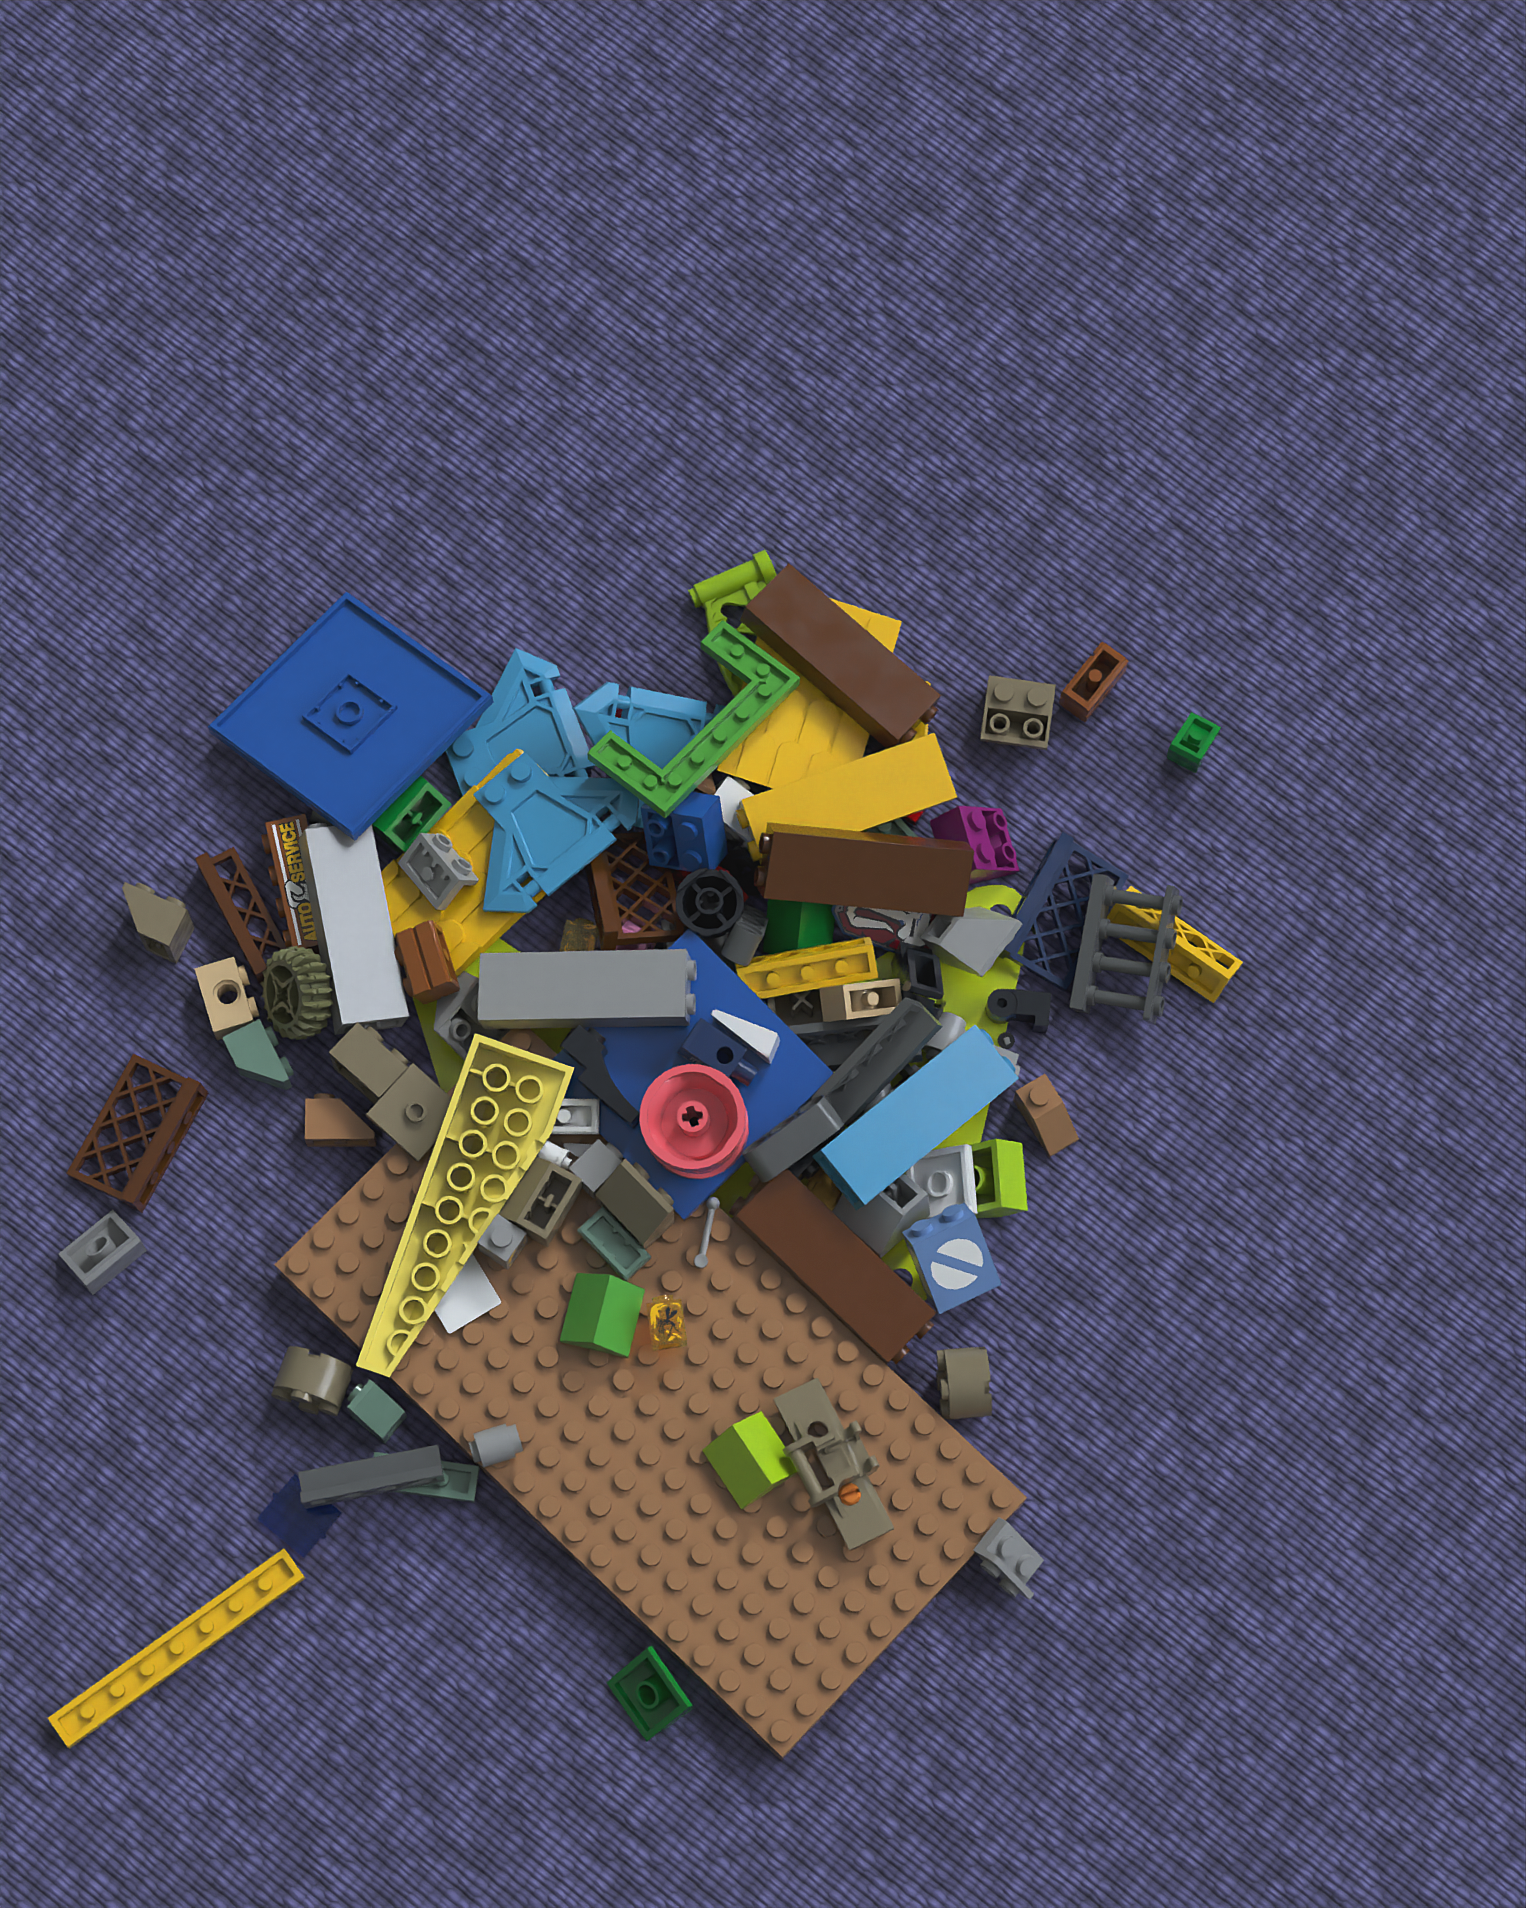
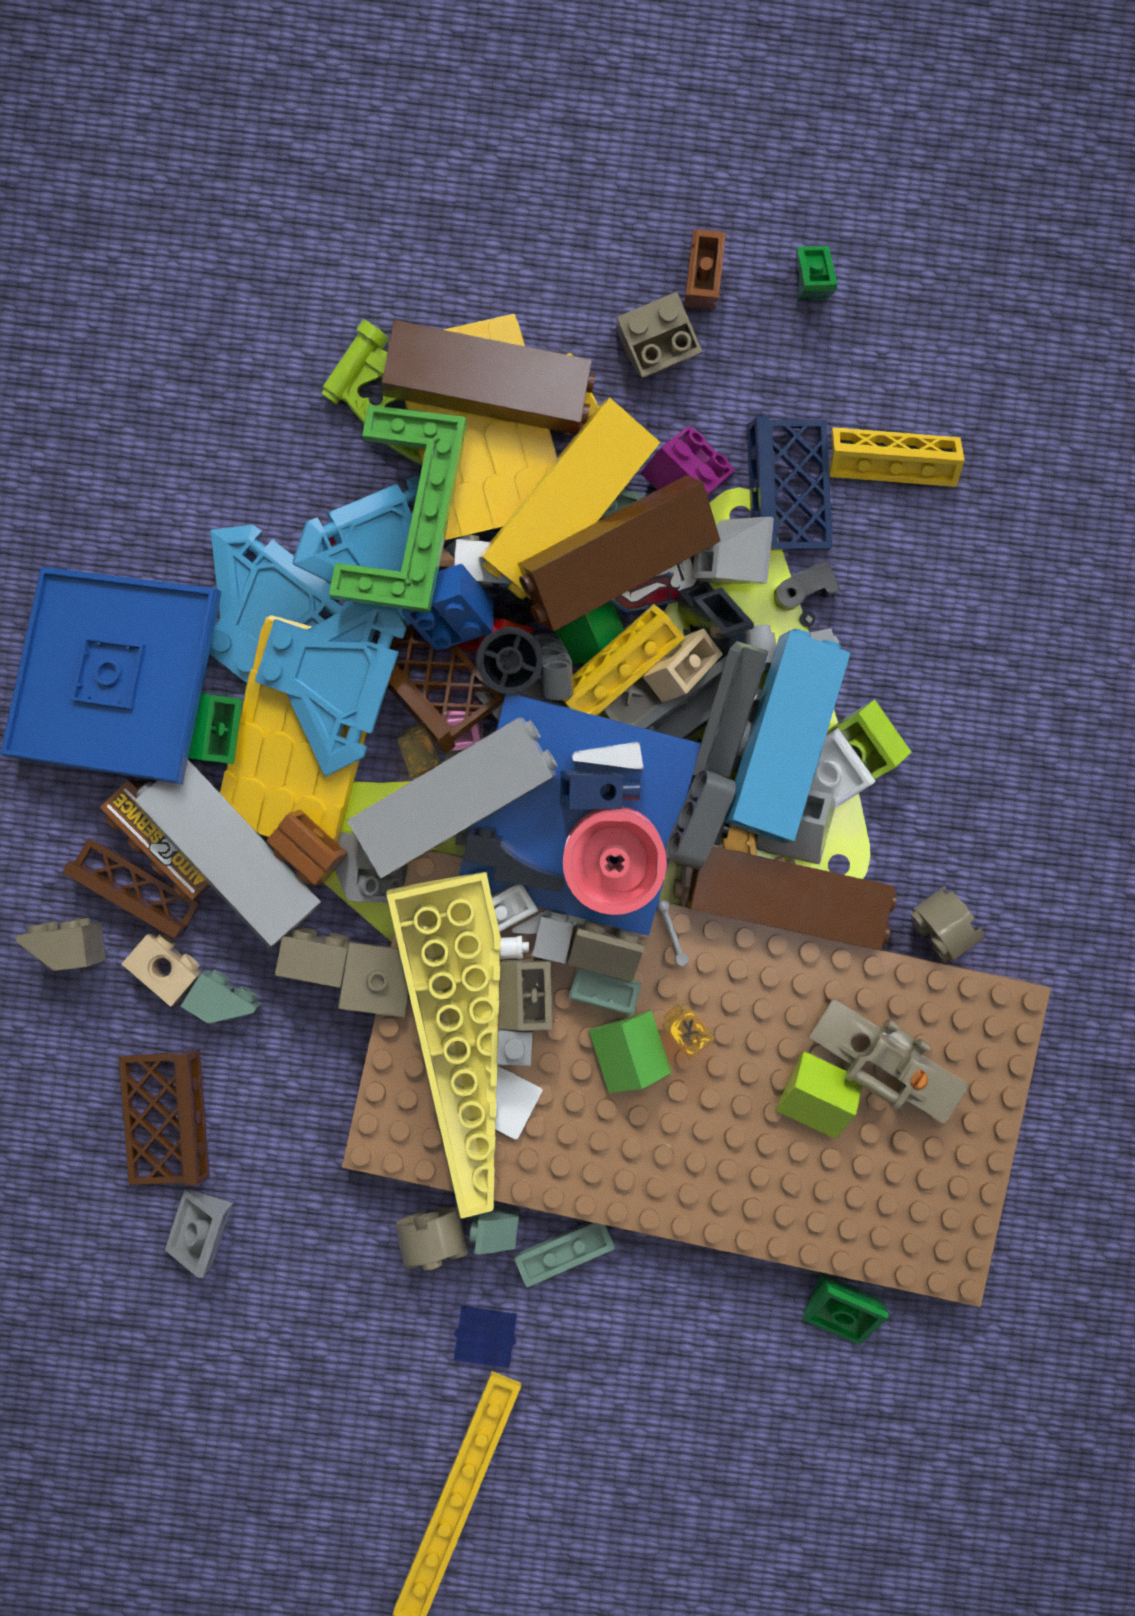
camera: 30 degrees left, 15 degrees up
(296, 992) = (217, 935): olive gear -> none
(334, 1124) = (313, 1017): medium nougat slope -> none
(371, 1476) = (525, 1284): dark grey fence -> none
(437, 869) = (265, 762): light grey bracket -> none
(495, 1444) = (611, 1210): light grey brick -> none
(951, 1257) = (877, 830): medium blue brick -> none
(1009, 1558) = (1061, 1042): light grey bracket -> none
(1046, 1115) = (878, 662): medium nougat slope -> none
(1093, 961) = (834, 480): dark grey fence -> none

